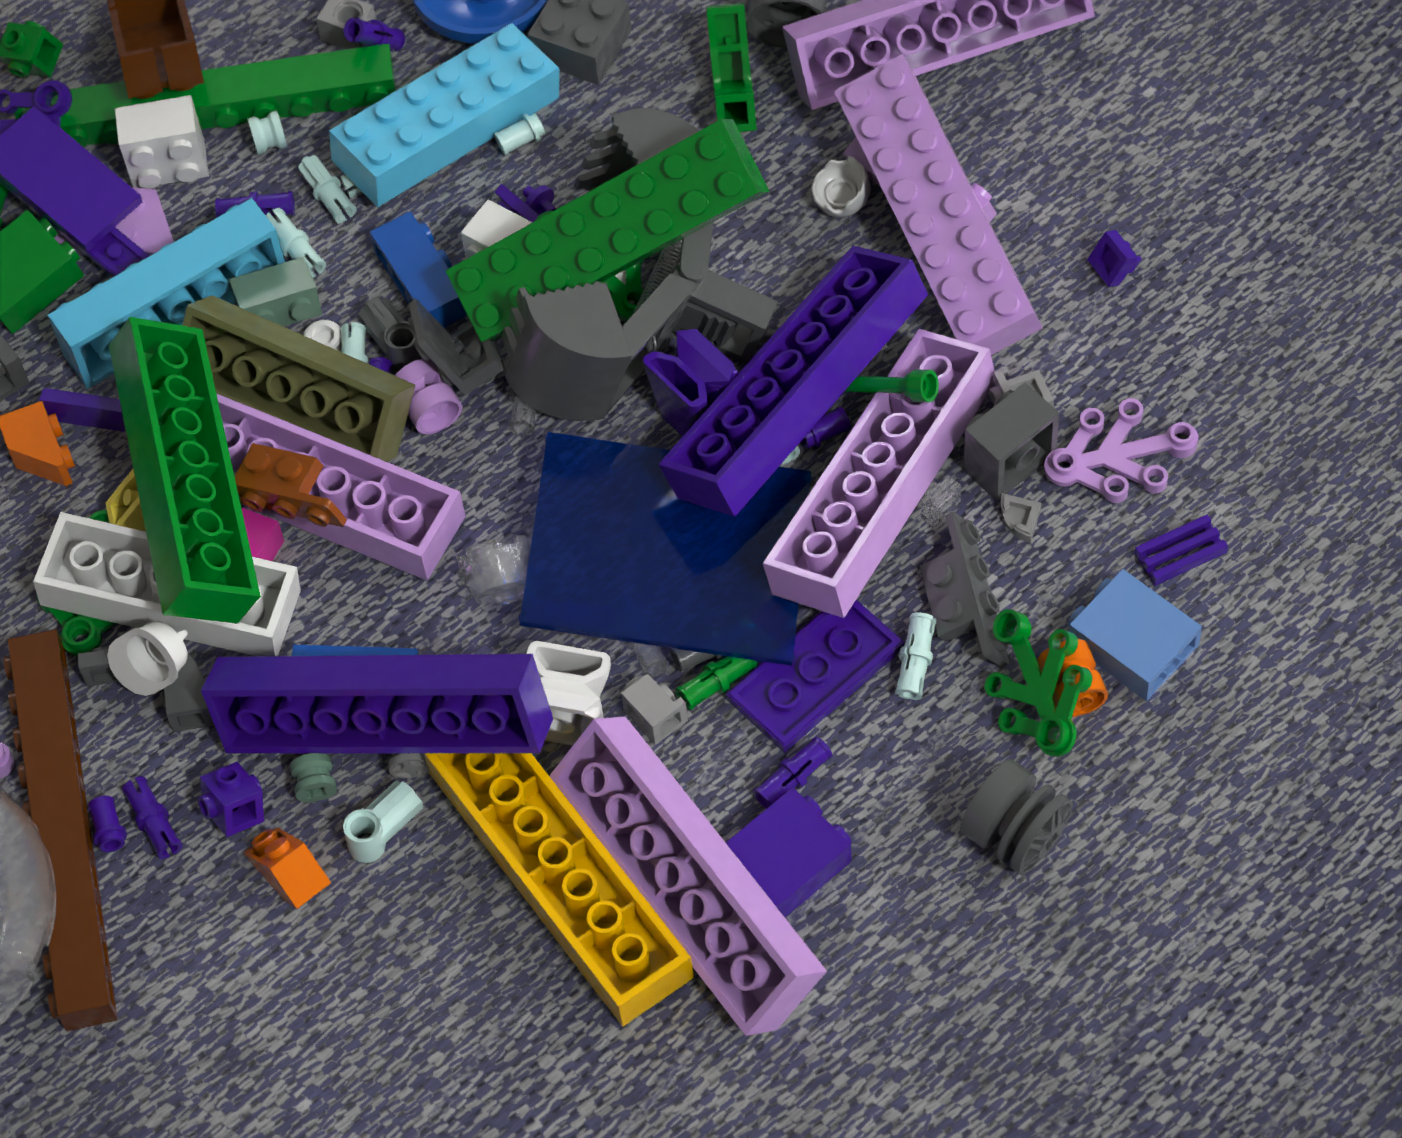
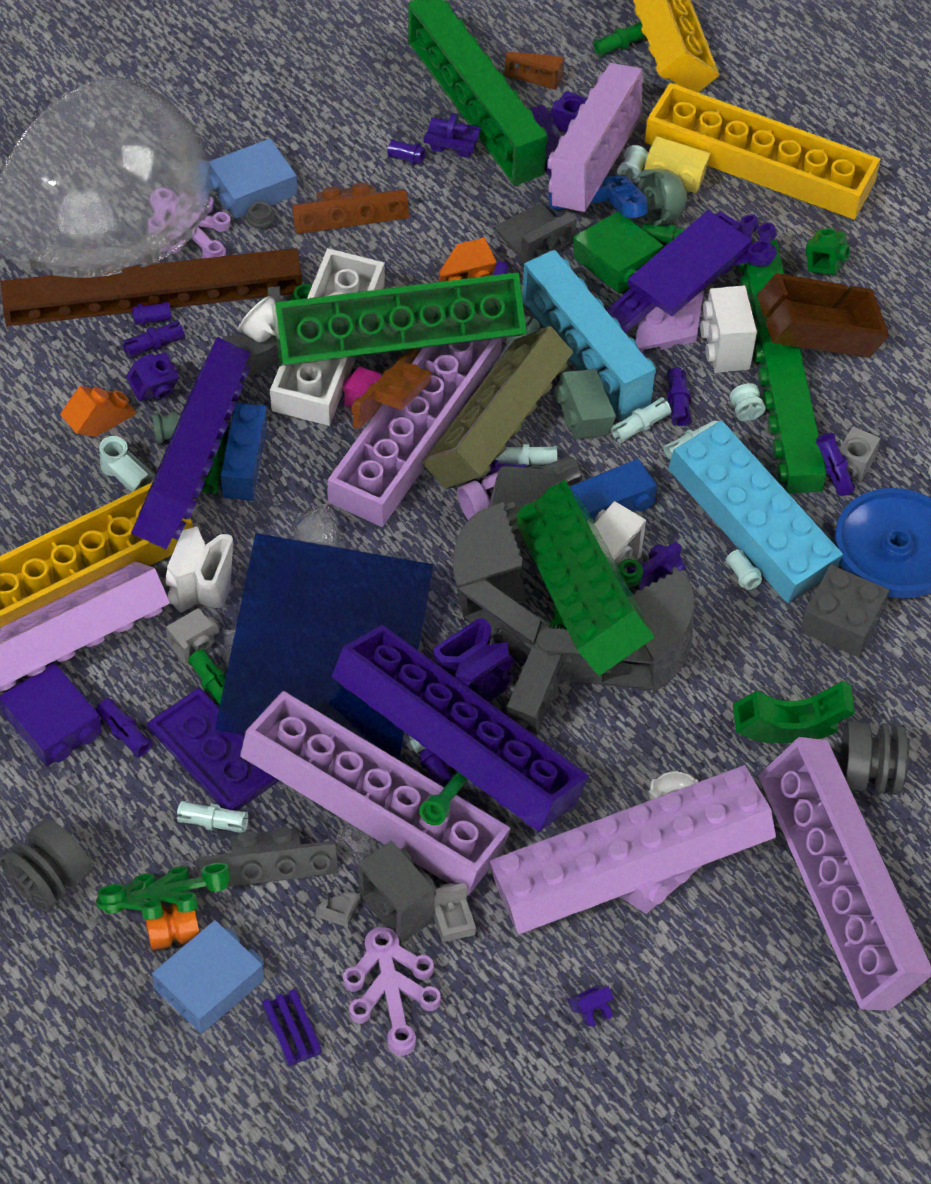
camera: 85 degrees right, 5 degrees down
(325, 332) = (553, 436): white tile -> none

